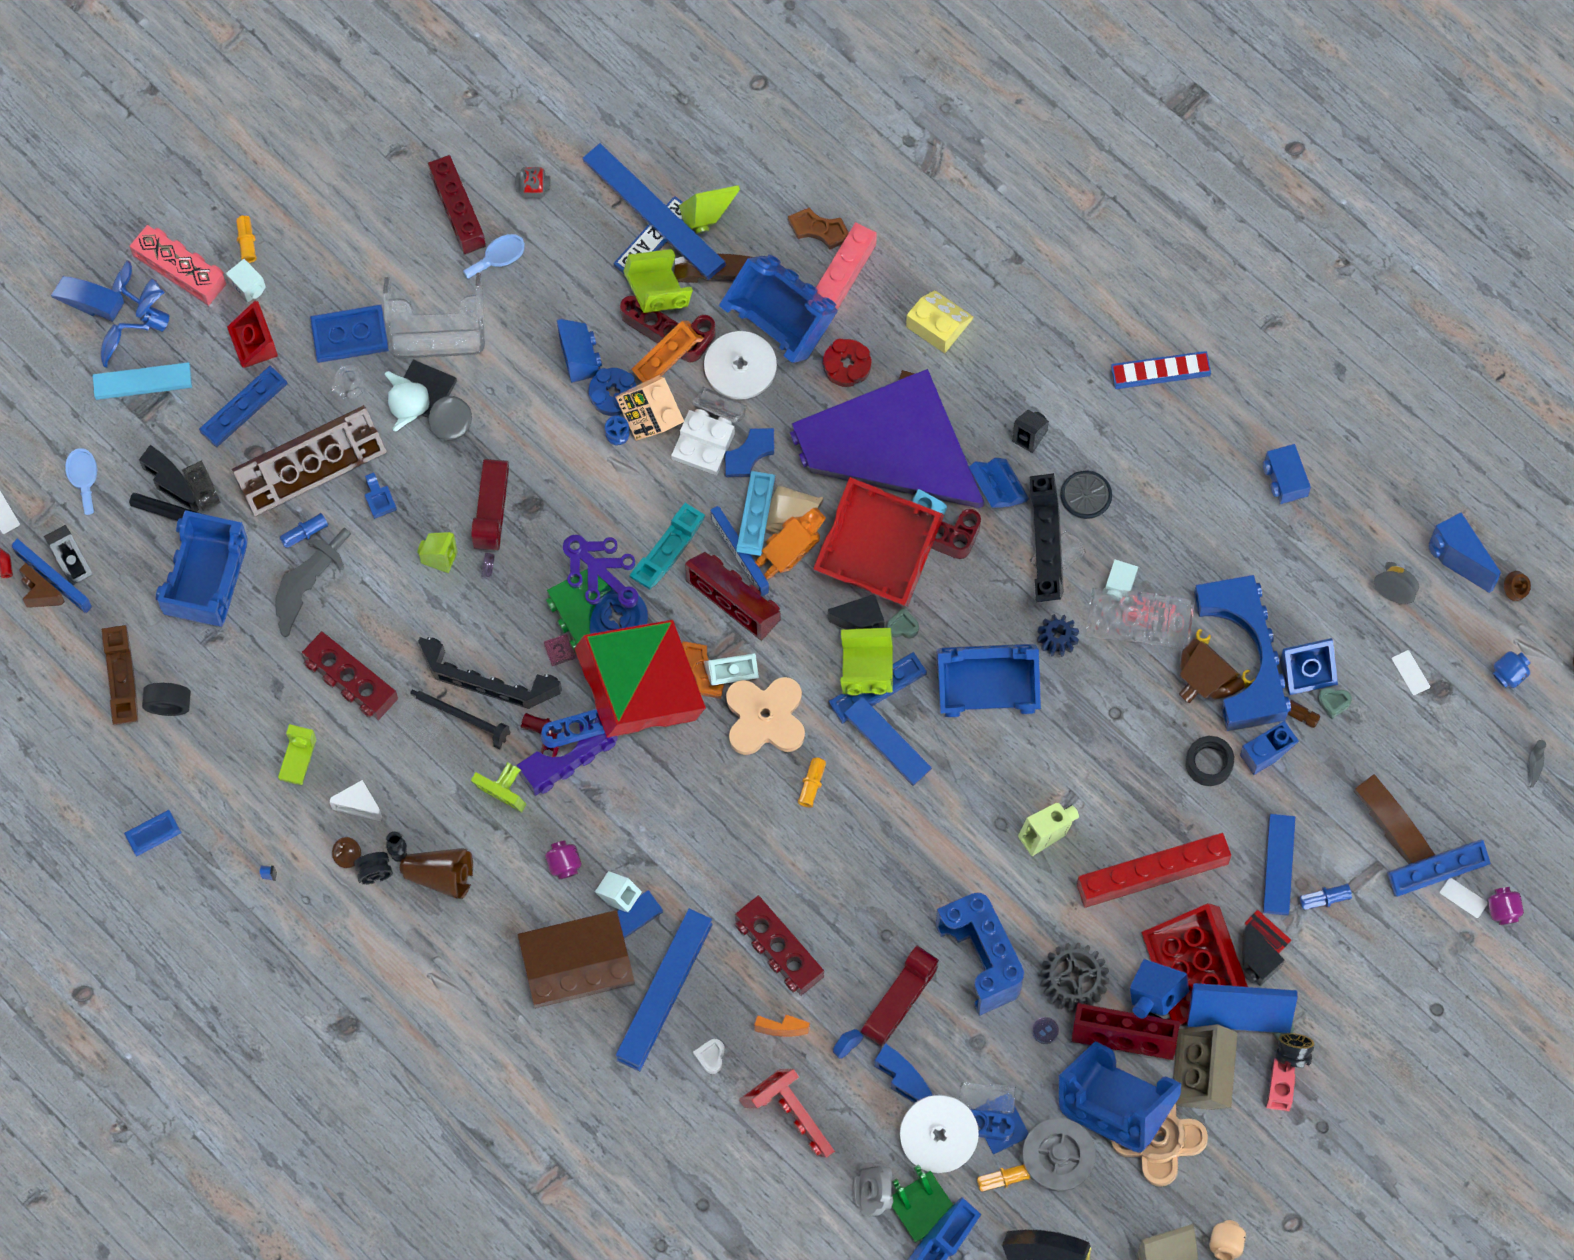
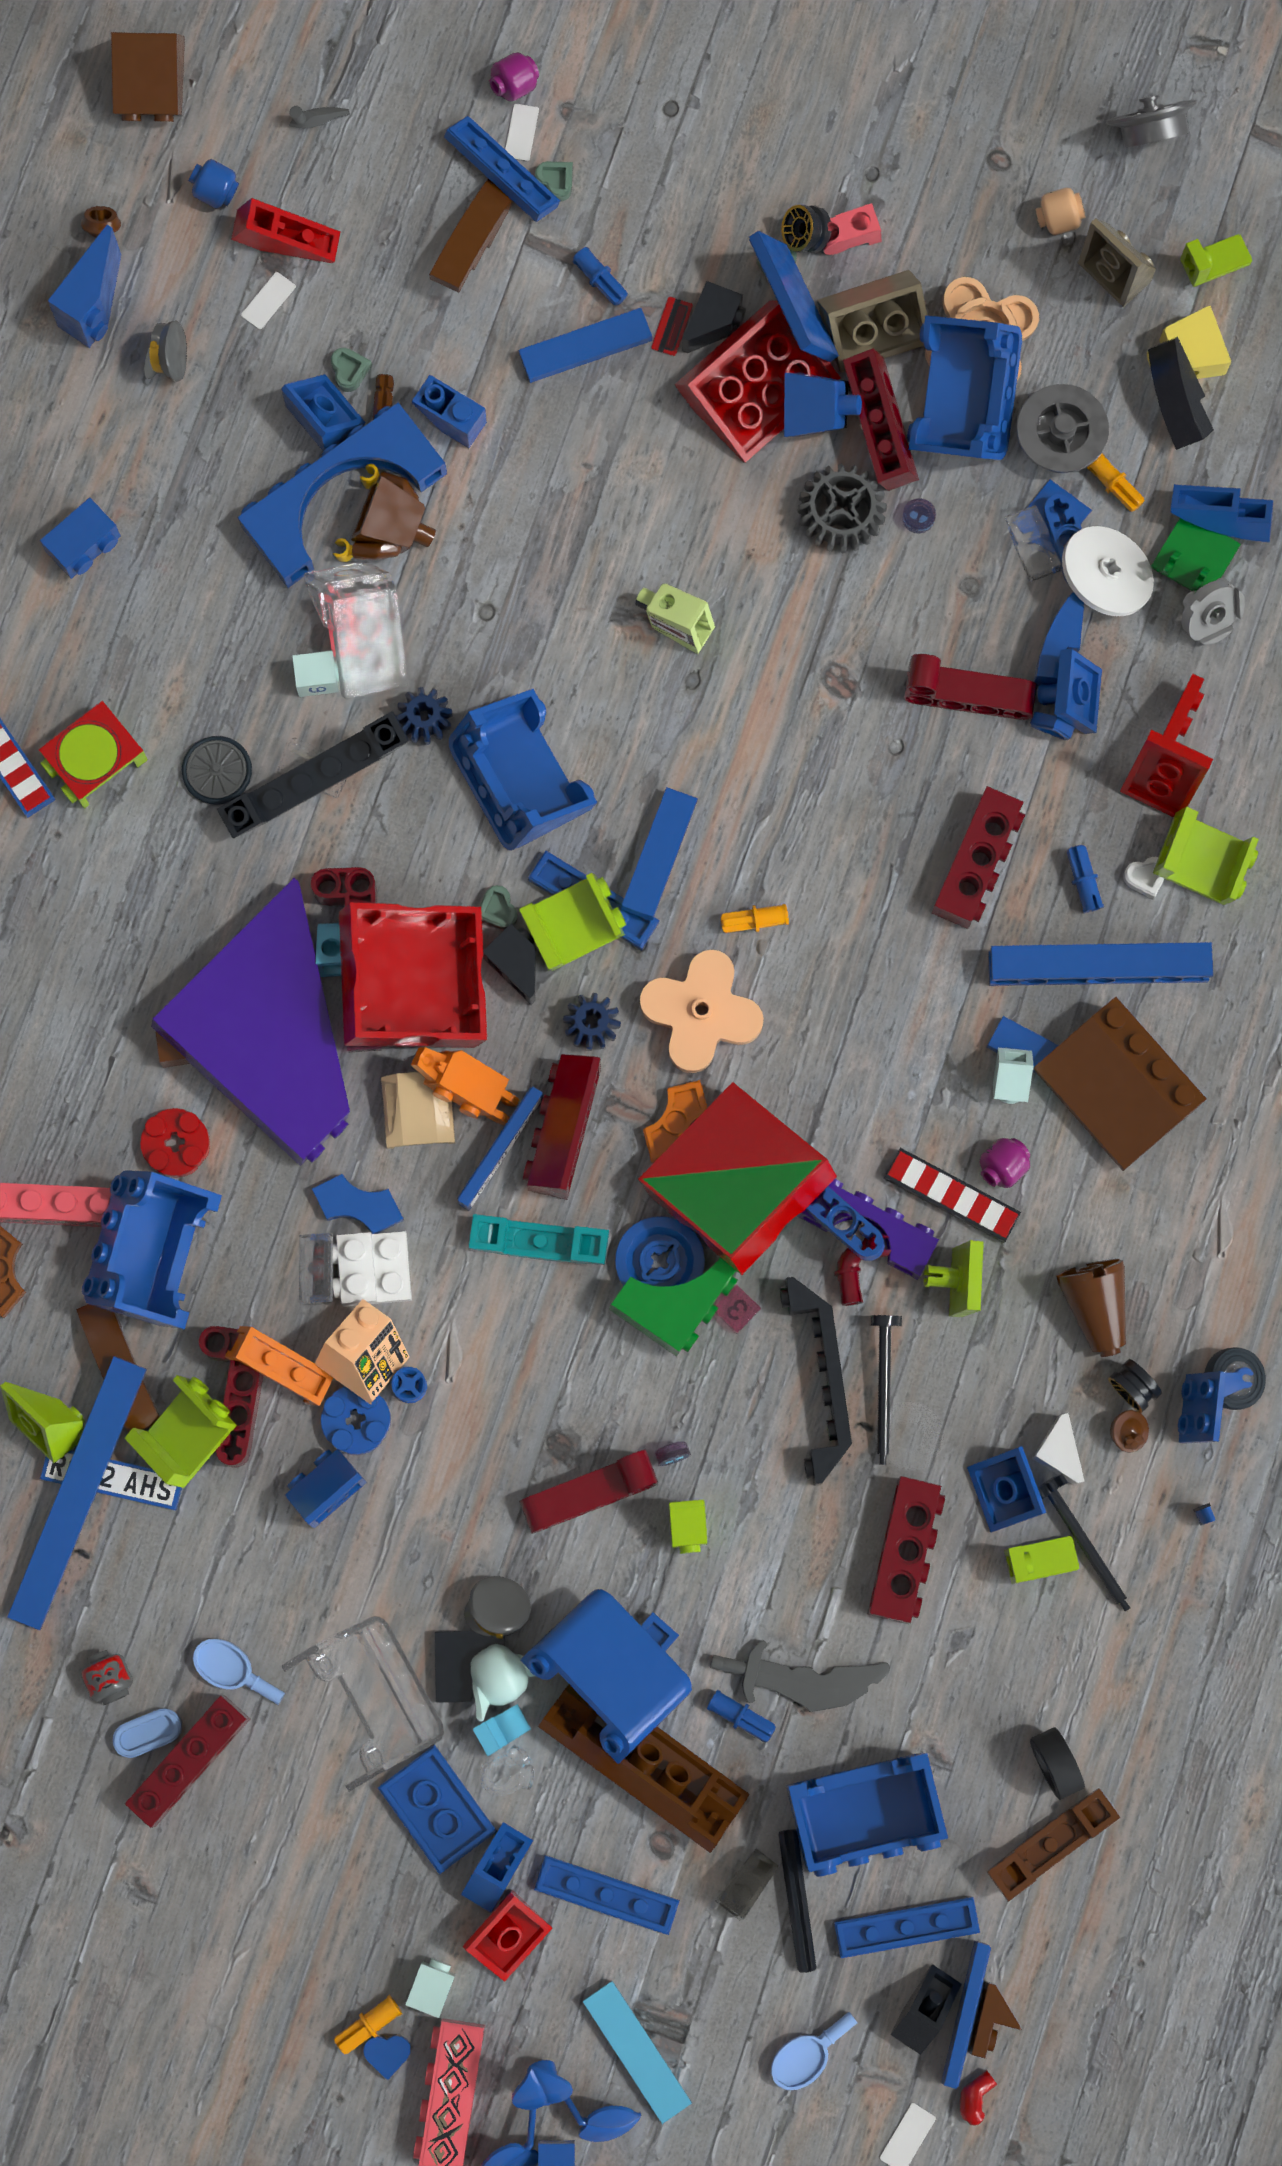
camera: 120 degrees left, 10 degrees up
(122, 569) = (906, 1927): none -> blue tile
(152, 833) = (1226, 1690): blue tile -> none
(167, 477) = (757, 1933): black slope -> none
(223, 243) = (387, 2054): none -> blue tile
(295, 348) = (496, 1867): none -> blue arch
(337, 785) = (1050, 1490): none -> black piece
(343, 931) = (1230, 1381): none -> blue plate
(352, 759) = (1006, 1489): none -> blue slope
(371, 456) = (612, 1669): none -> blue windscreen
(374, 386) = (501, 1729): none -> medium azure leg
(396, 846) = (1104, 1363): black pin -> none
(487, 193) = (147, 1733): none -> light blue tile
(560, 819) = (952, 1195): none -> tile
(597, 567) = (619, 1301): dark purple plant -> none
(702, 1098) = (1205, 858): none -> lime panel
(722, 363) = (218, 1263): white piece -> none
(729, 1010) = (1084, 878): none -> blue axle
(731, 669) = (659, 1083): light aqua slope -> none
(756, 513) = (442, 1150): medium azure tile -> none
(785, 641) = (604, 1023): none -> dark blue gear
(790, 1027) = (1070, 800): orange slope -> none
(861, 1065) = (1076, 691): none -> blue tile
(937, 320) = (62, 1053): light yellow slope -> none
(976, 919) = (893, 577): blue windscreen -> none
(999, 483) = (257, 874): blue slope -> none
(1029, 430) = (165, 868): black slope -> none
(1133, 419) = (90, 753): none -> panel
(1153, 870) = (667, 475): red brick -> none
(1210, 742) = (497, 449): black tyre -> none
(1415, 903) = (556, 178): none -> sand green tile
(1452, 701) = (283, 232): none -> red slope

